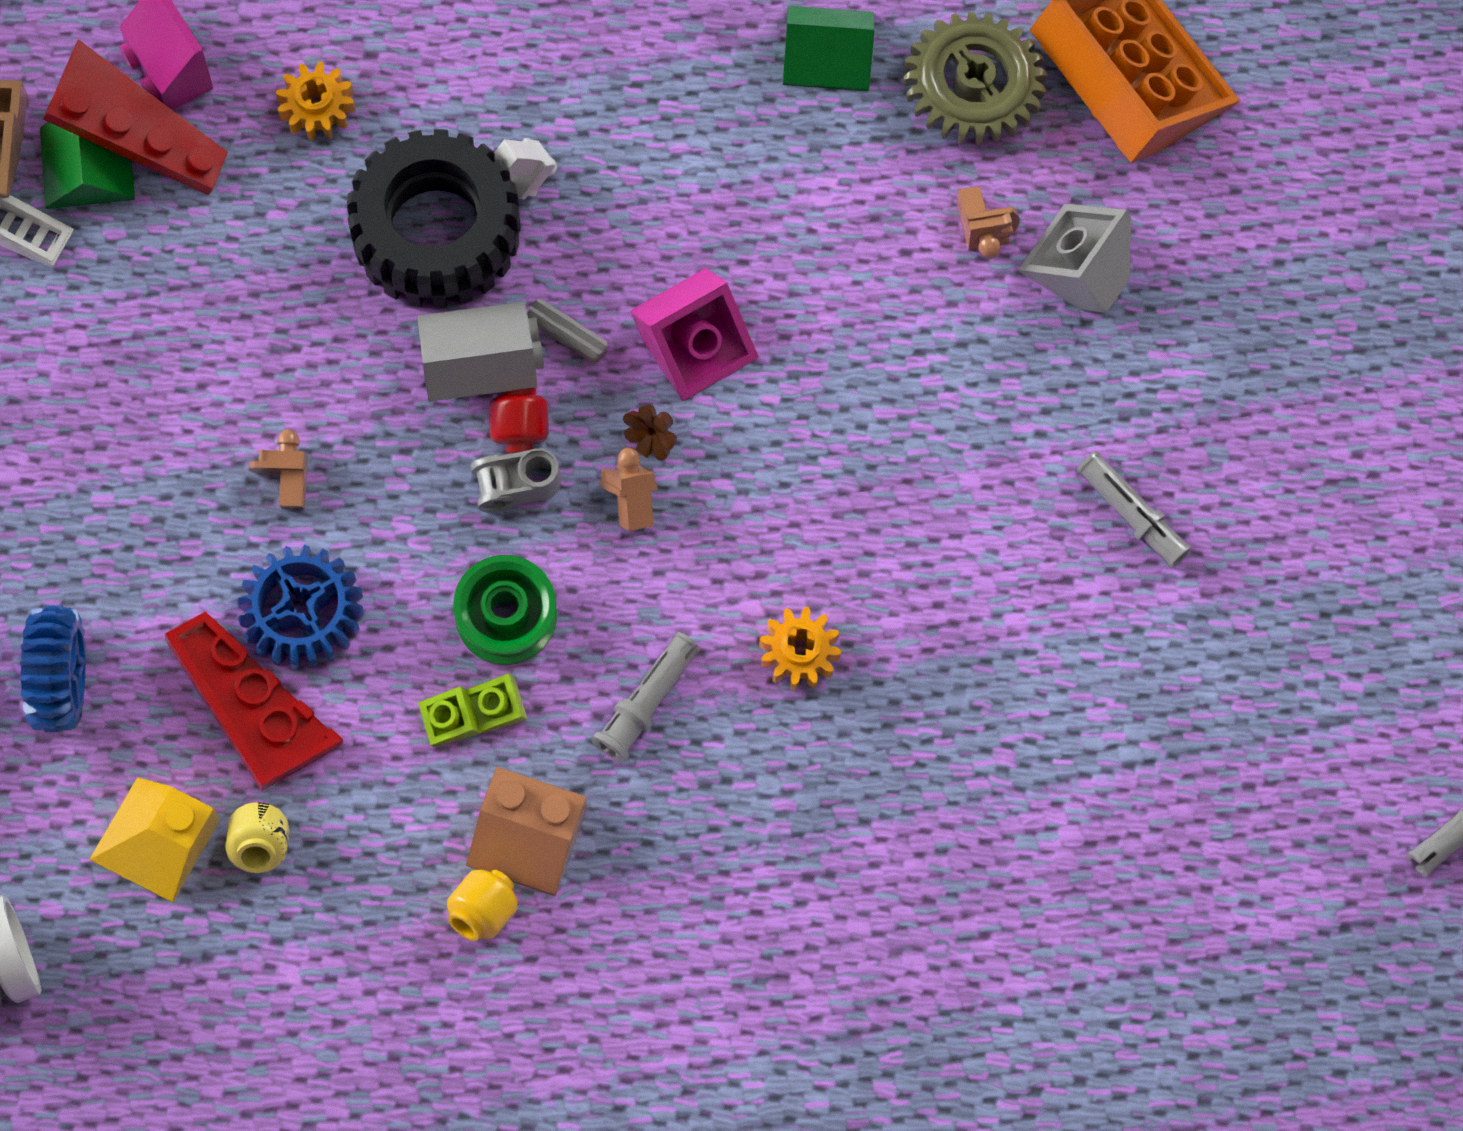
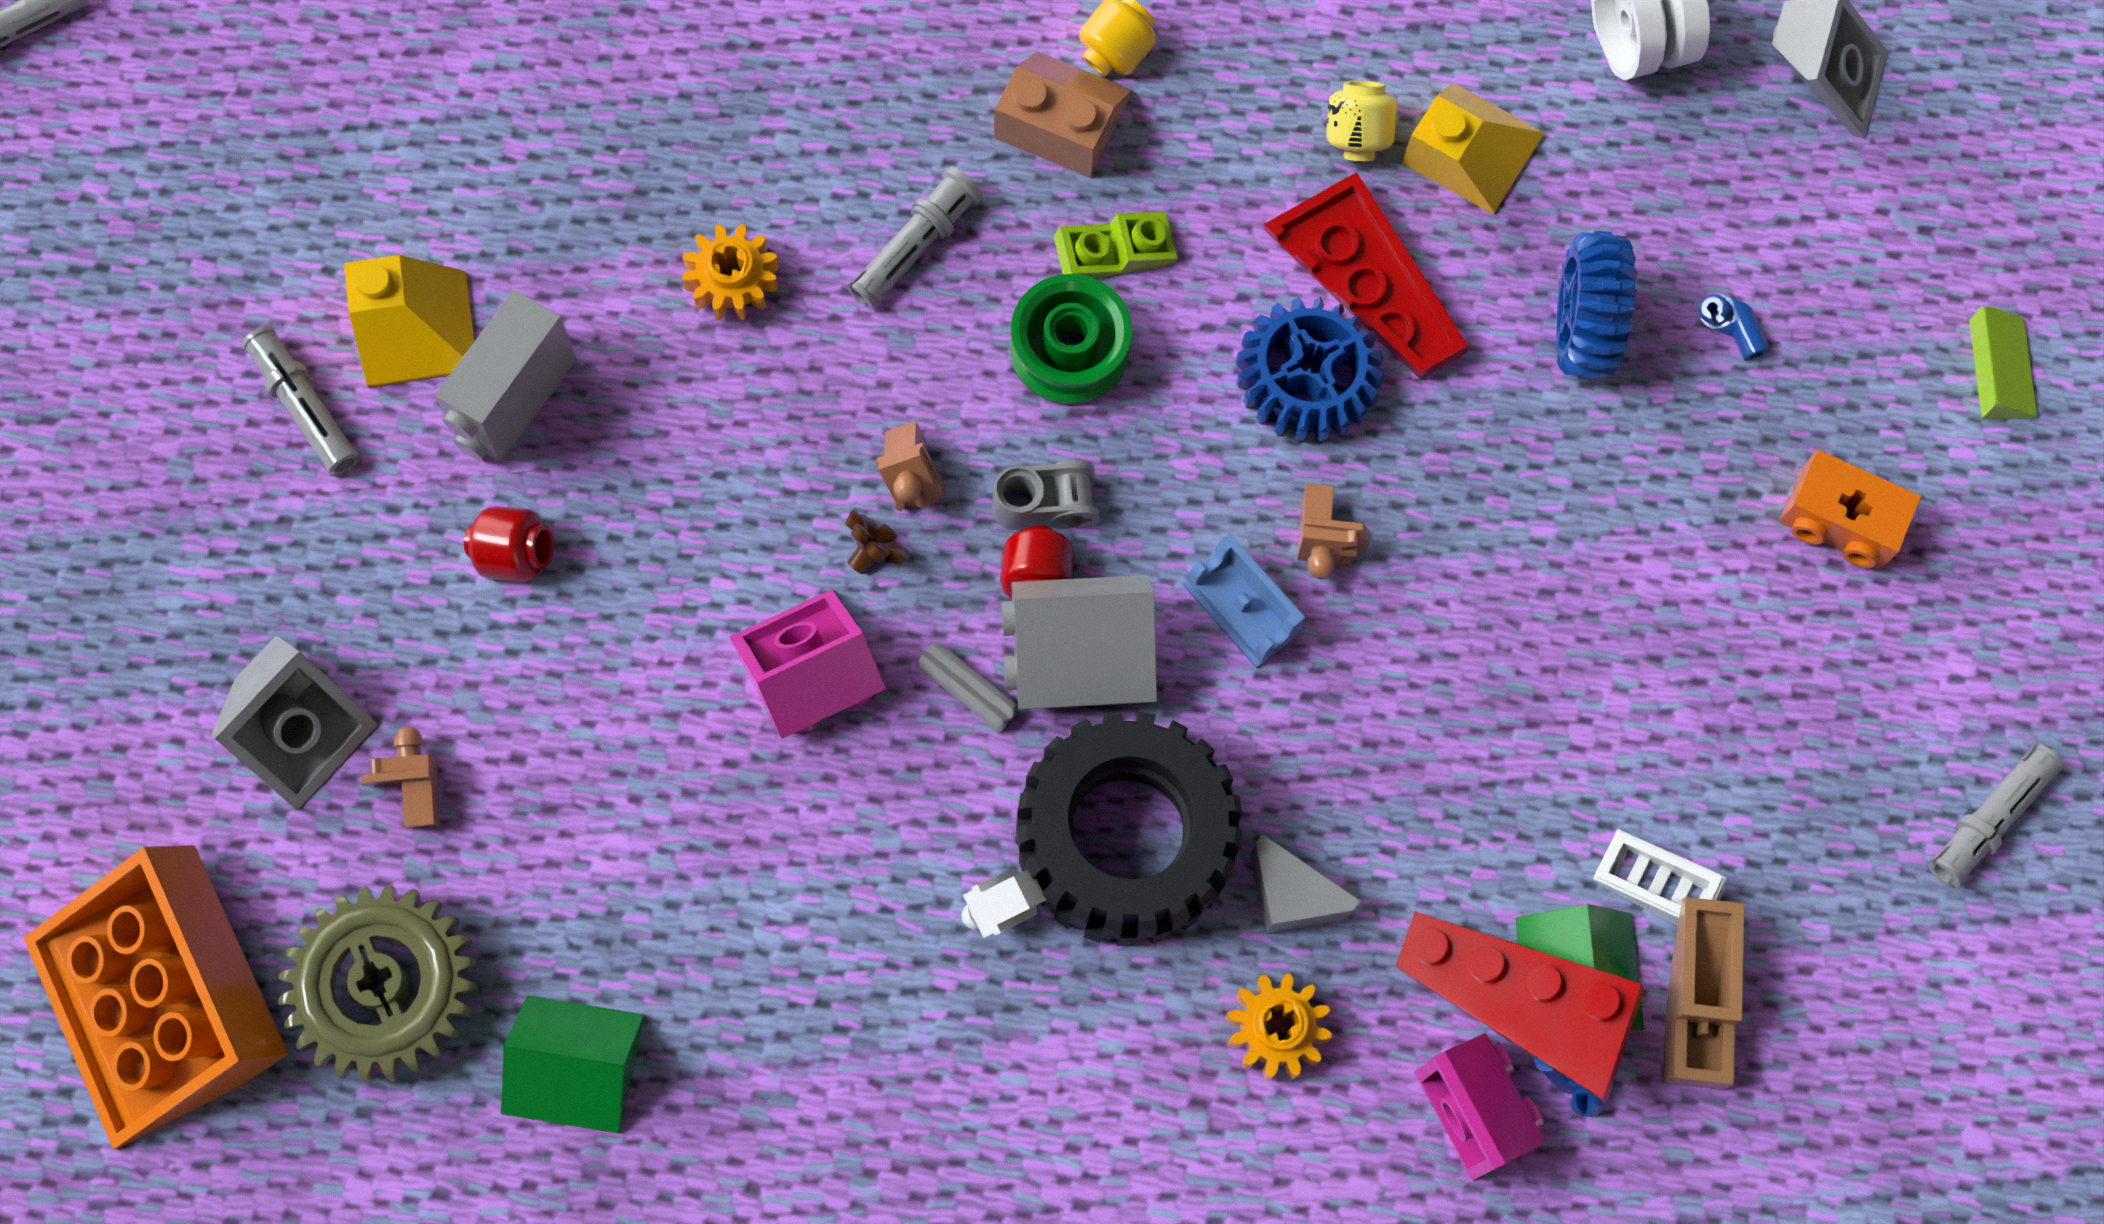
camera: 175 degrees left, 0 degrees up
(303, 191) = (1295, 893): none -> light grey slope
(349, 409) = (1244, 602): none -> medium blue hinge
(942, 403) = (509, 544): none -> red head
(966, 520) = (505, 377): none -> light grey brick
(1058, 585) = (408, 318): none -> yellow slope

